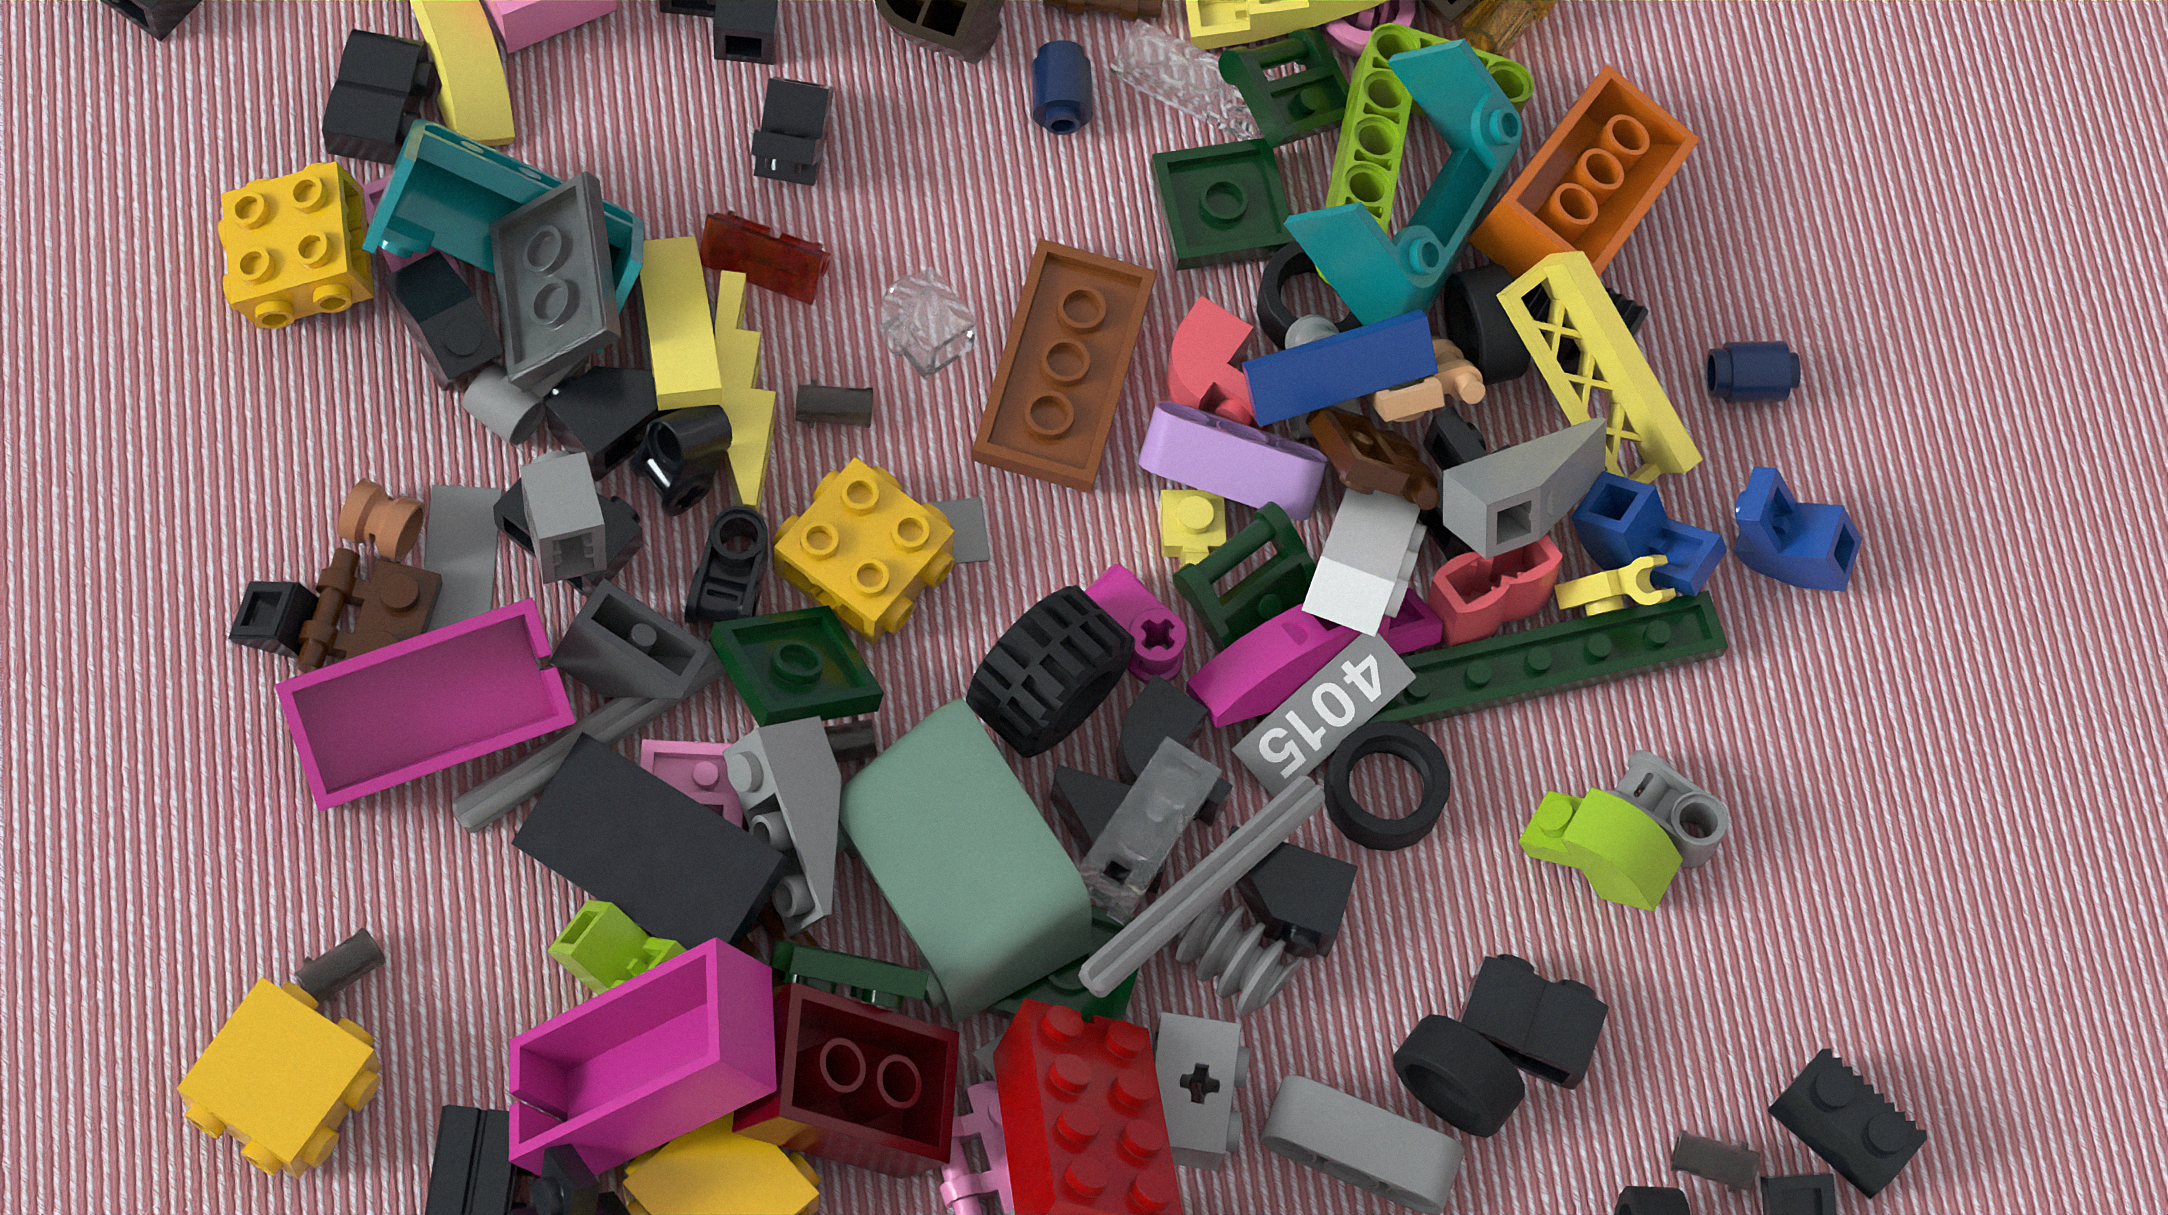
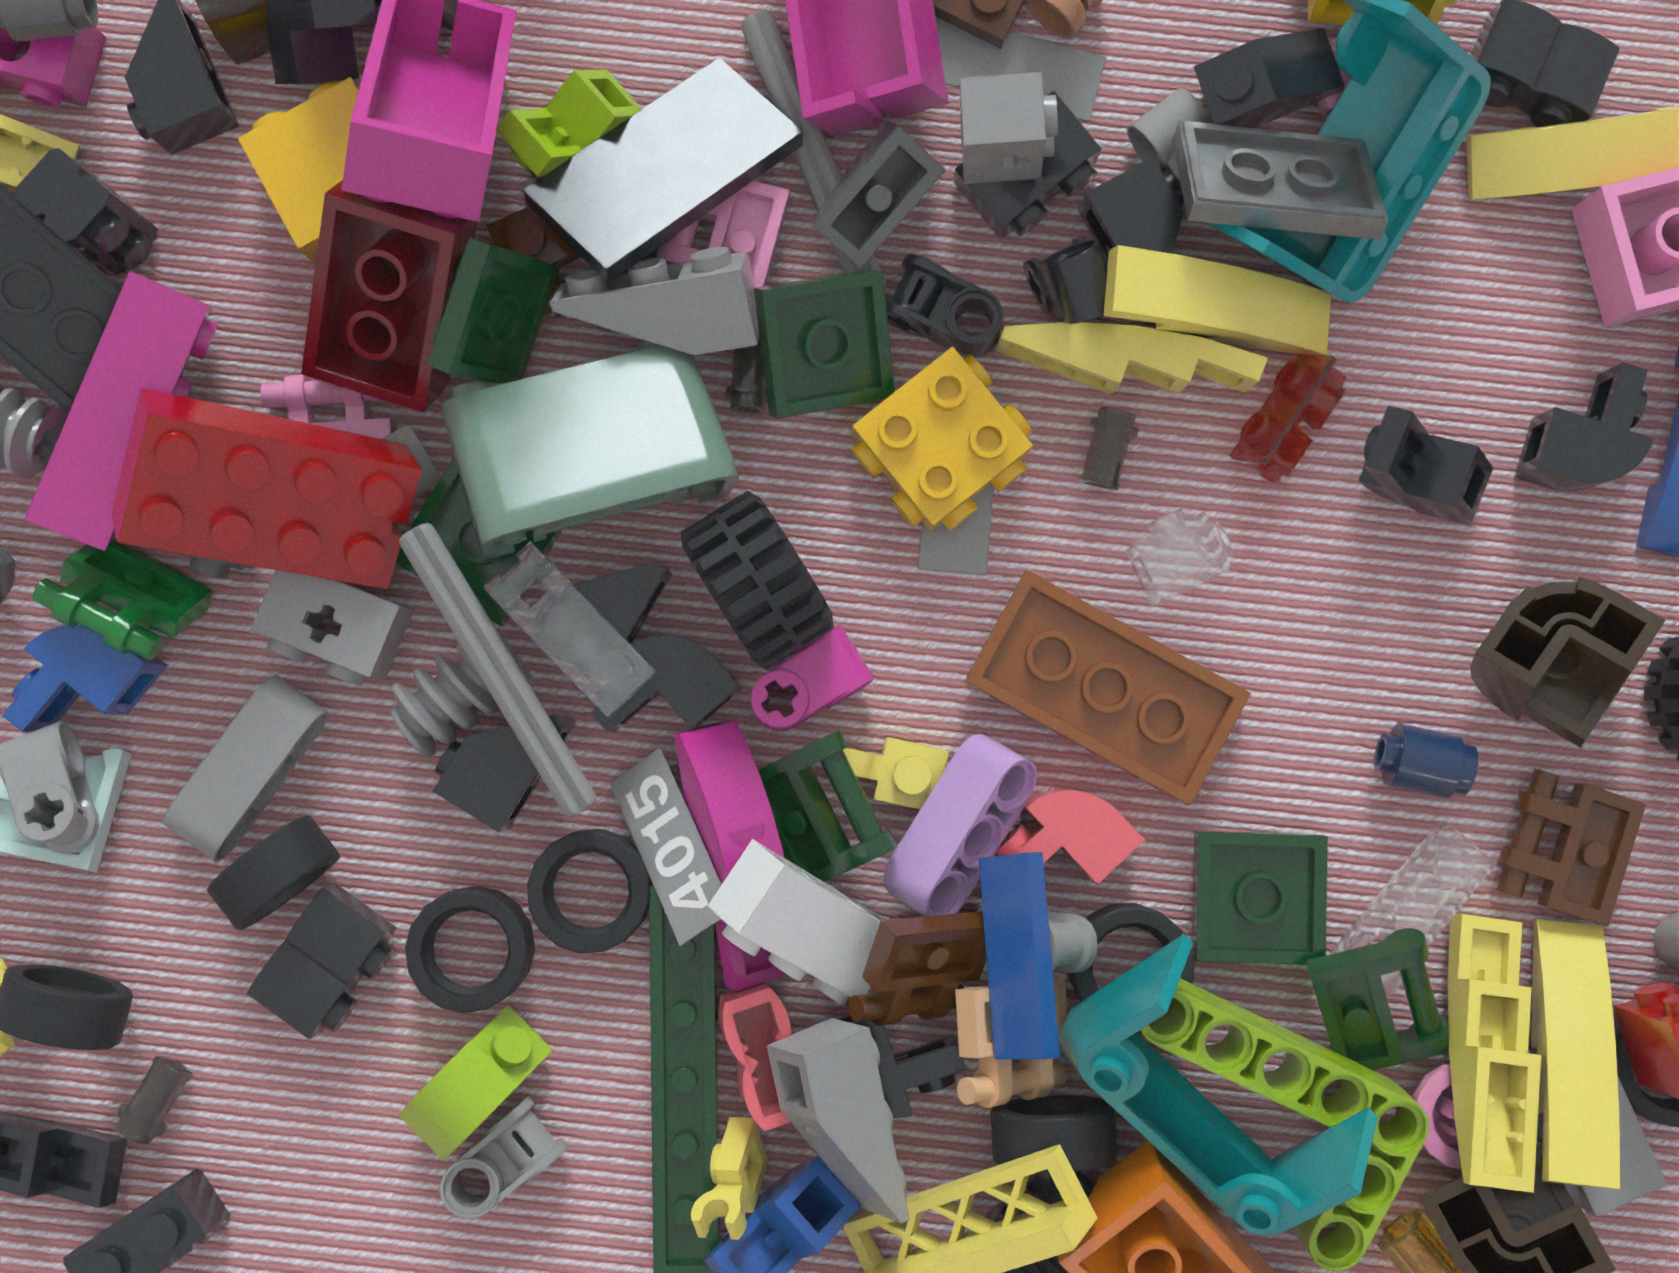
camera: 115 degrees right, 20 degrees up
(1493, 842) = (421, 956): none -> black tyre

